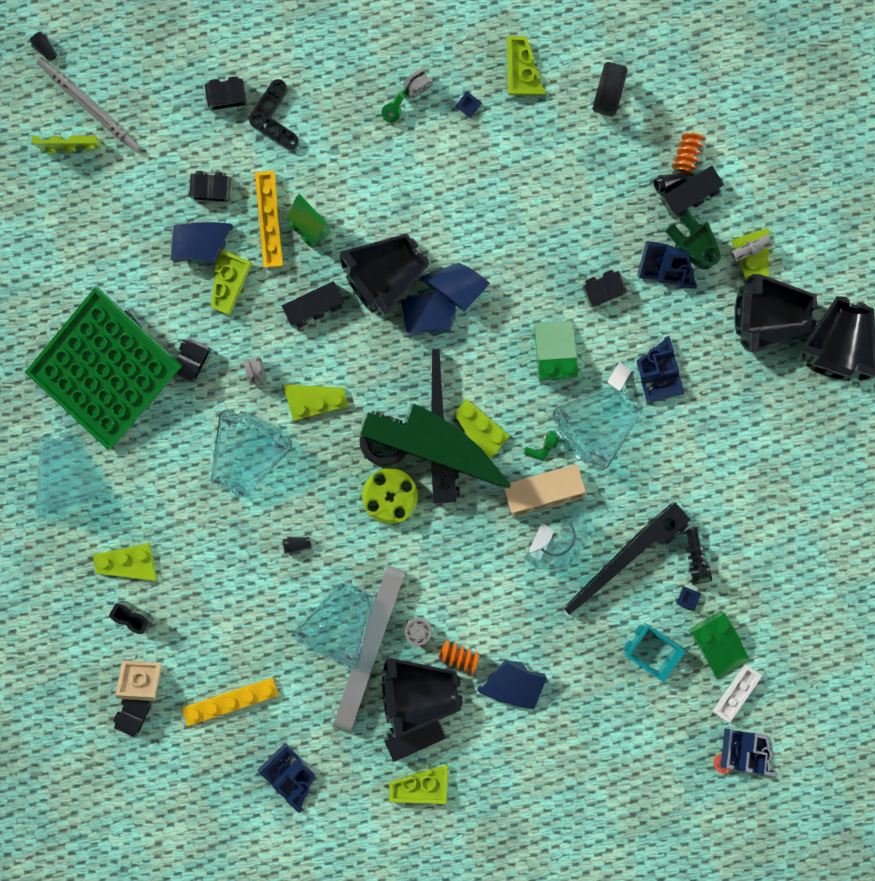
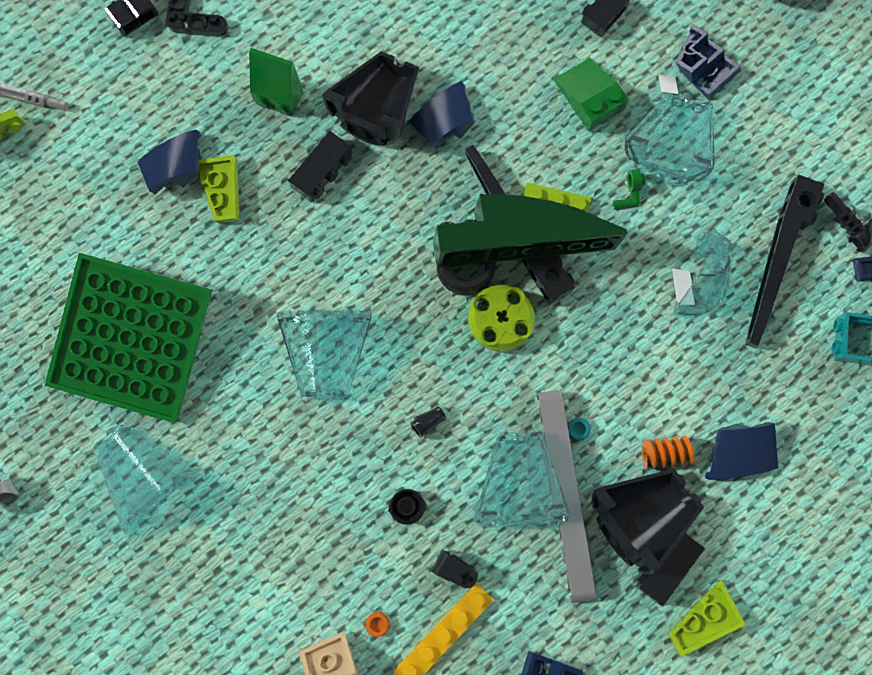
camera: 25 degrees left, 10 degrees down
(127, 562) = (252, 536): lime wing -> none
(127, 614) = (278, 593): black brick -> none
(187, 669) = (377, 624): none -> orange tile
(192, 358) = (221, 278): black brick -> none
(210, 187) = (157, 105): black brick -> none
(249, 599) = (407, 506): none -> black hat
(255, 370) = (293, 260): light grey wheel -> none
(260, 660) = (450, 567): none -> black piece
(269, 219) = (233, 108): yellow plate -> none
(314, 400) = (370, 262): lime wing -> none
(404, 606) = (578, 429): none -> teal tile
(418, 631) = (608, 447): light grey wheel -> none
(457, 284) = (457, 73): dark blue slope -> none
(545, 491) = (658, 233): tan brick -> none

